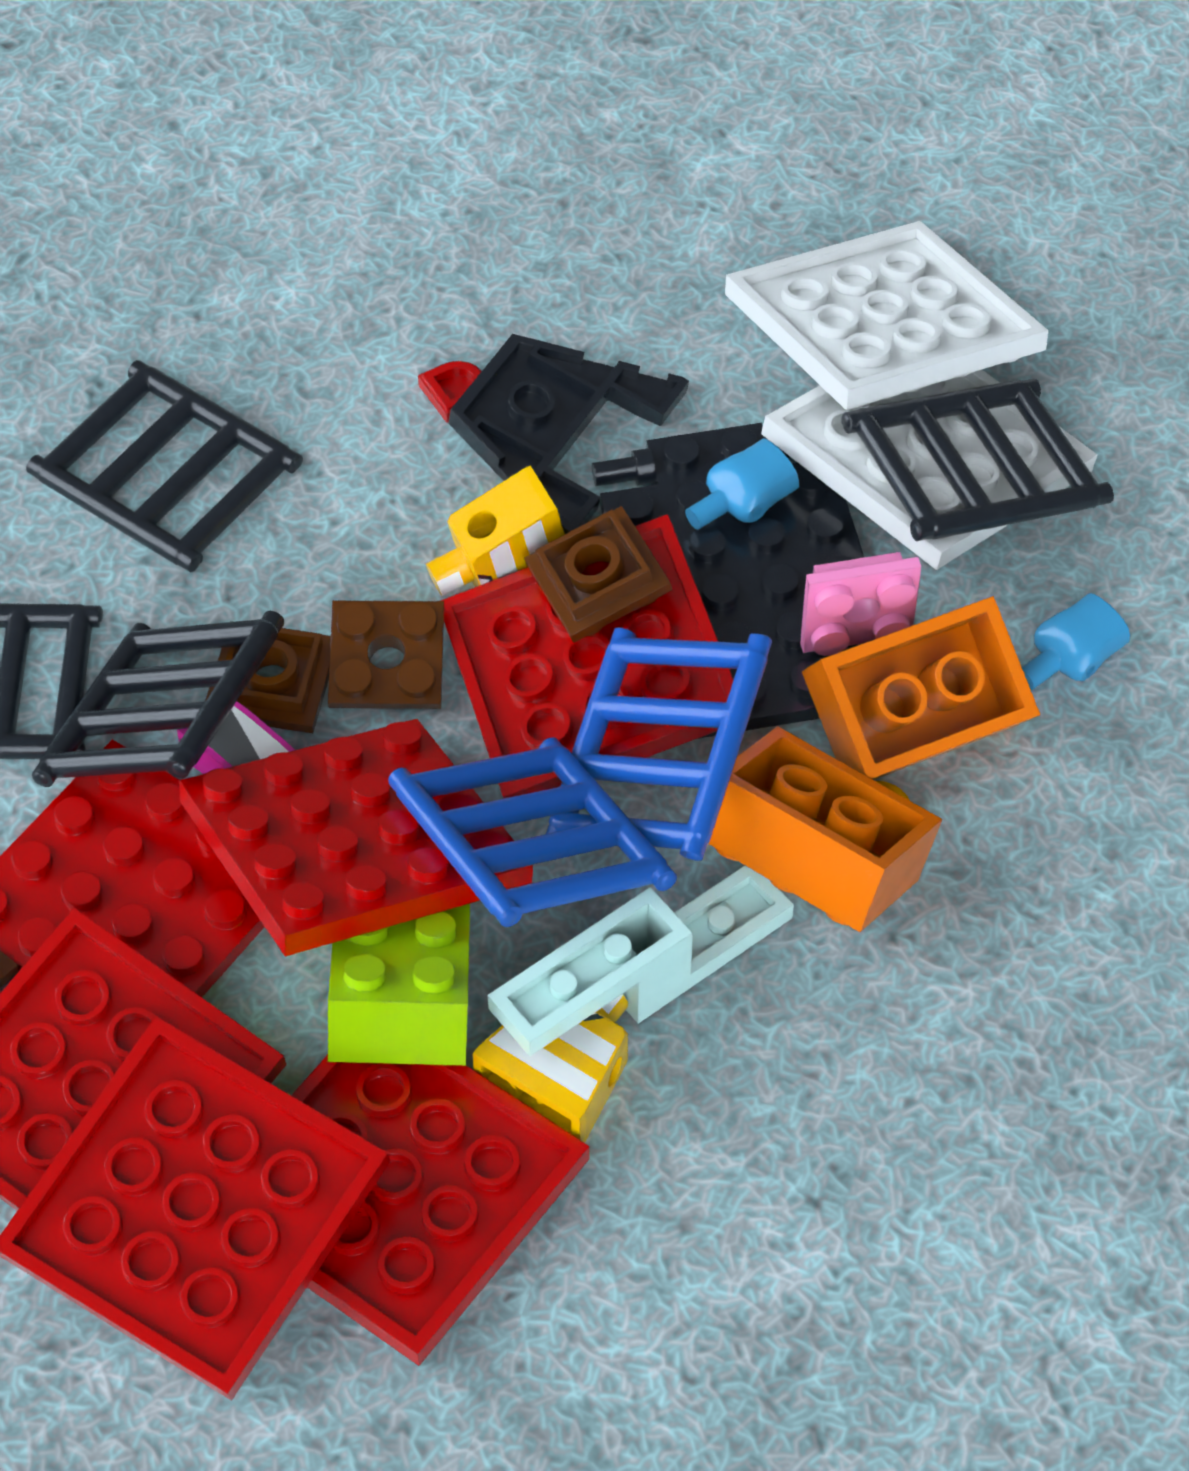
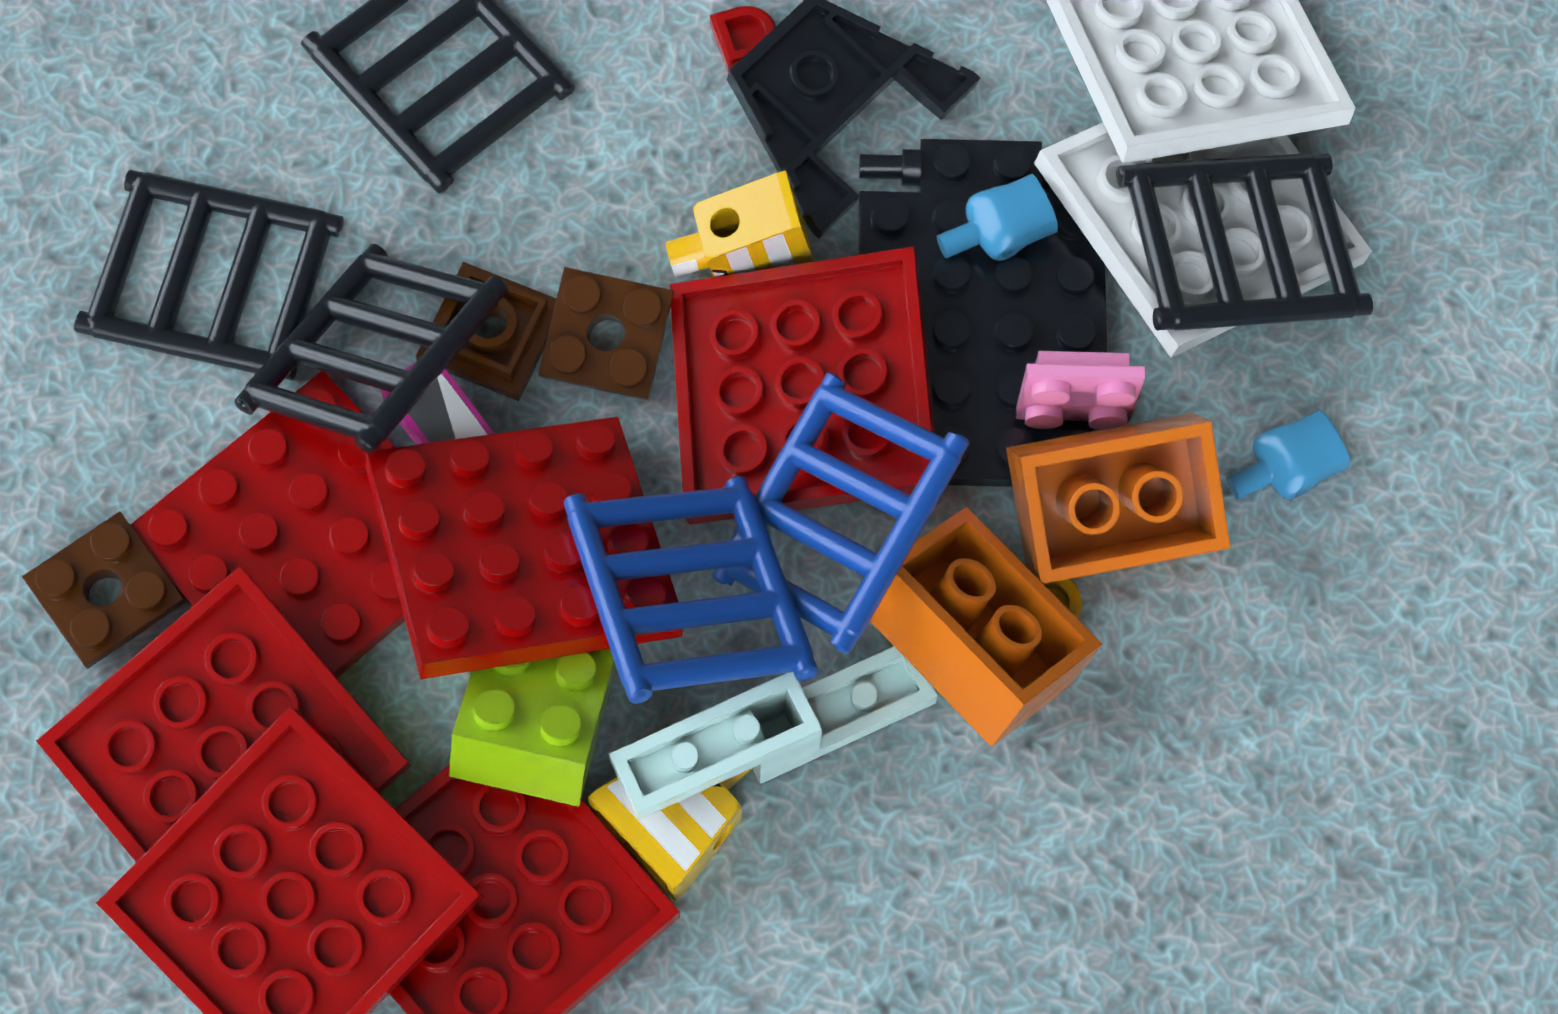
camera: 10 degrees right, 15 degrees up
(594, 601) = (853, 322): reddish brown piece -> none

